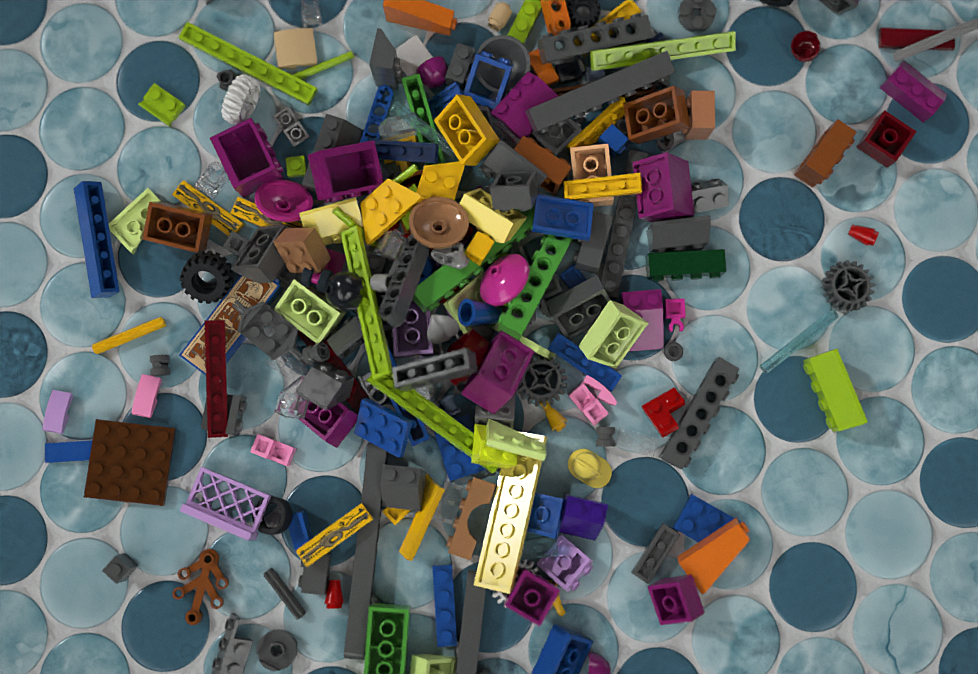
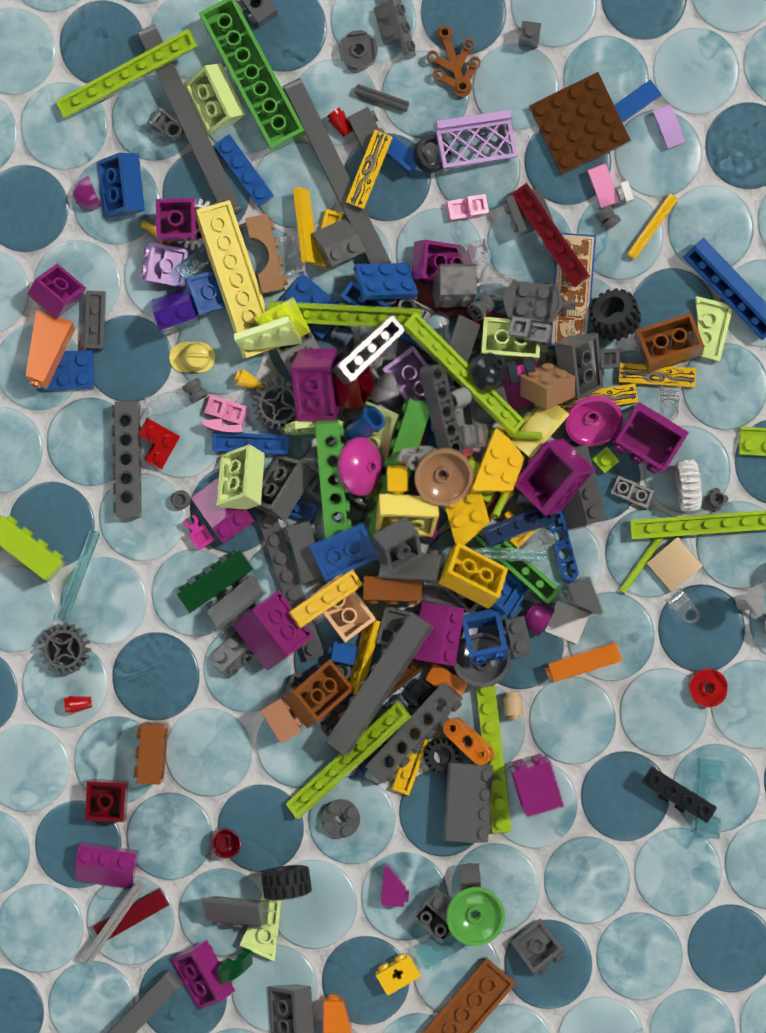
camera: 145 degrees right, 5 degrees up
(131, 377) = (624, 192): none -> white plate
(287, 306) = (530, 331): none -> dark grey slope

